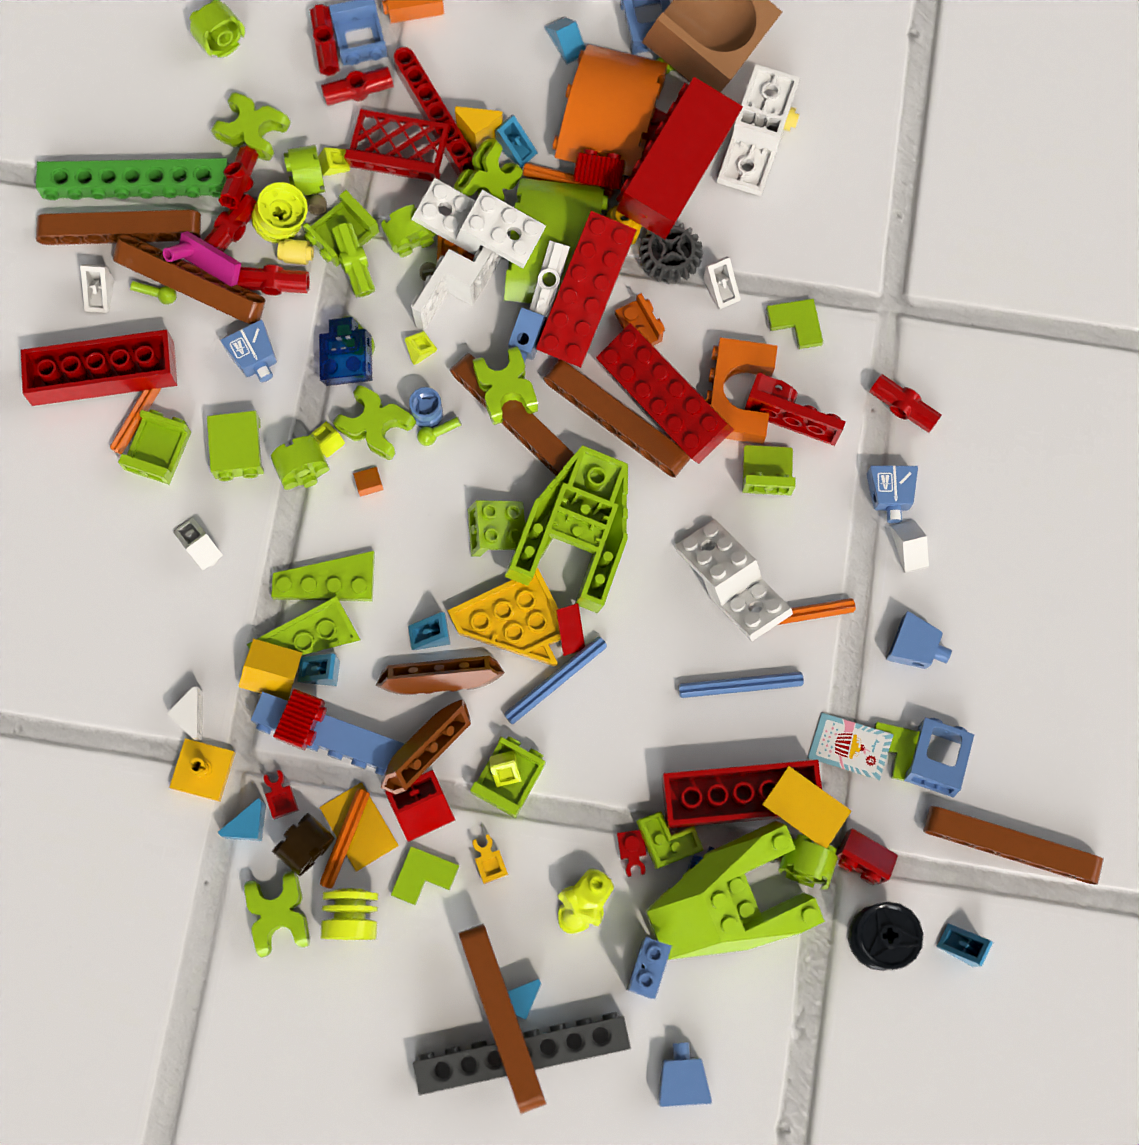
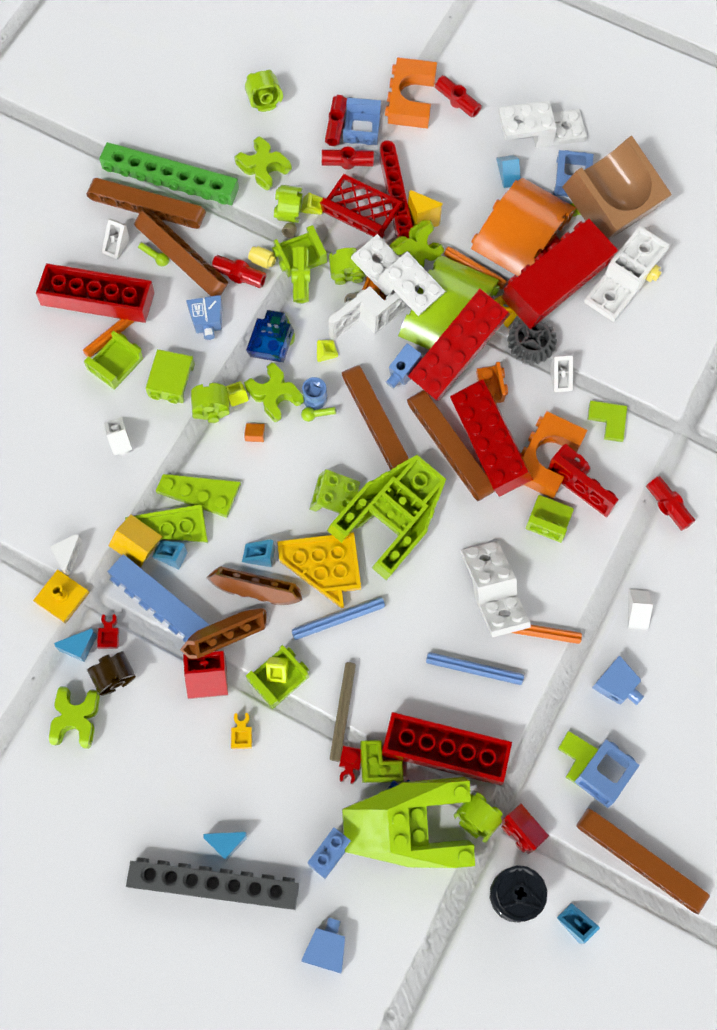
camera: 20 degrees right, 5 degrees down
(205, 257) = (197, 240): dark pink piece -> none
(232, 224) = (222, 226): red piece -> none
(238, 177) = (240, 194): red piece -> none
(286, 203) = (261, 218): neon yellow wheel -> none
(299, 720) = (141, 582): red brick -> none
(344, 838) = (140, 683): orange axle -> none
(349, 915) = (124, 736): neon yellow wheel -> none
(372, 834) = (157, 675): yellow sticker -> none
(421, 868) = (189, 721): lime tile -> none
(502, 1019) = (206, 852): dark orange beam -> none
(505, 385) = (376, 394): lime piece -> none
(515, 141) = (445, 229): dark azure slope -> none
(554, 263) = (442, 319): white piece -> none
(570, 629) = (361, 584): red sticker -> none
(584, 901) = (300, 787): neon yellow head -> none
(599, 170) = (499, 266): red brick -> none
(601, 792) = (342, 712): none -> dark tan axle
(807, 807) = (491, 774): yellow sticker -> none
(850, 746) = (542, 742): sticker -> none
(892, 489) = (639, 562): medium blue torso -> none

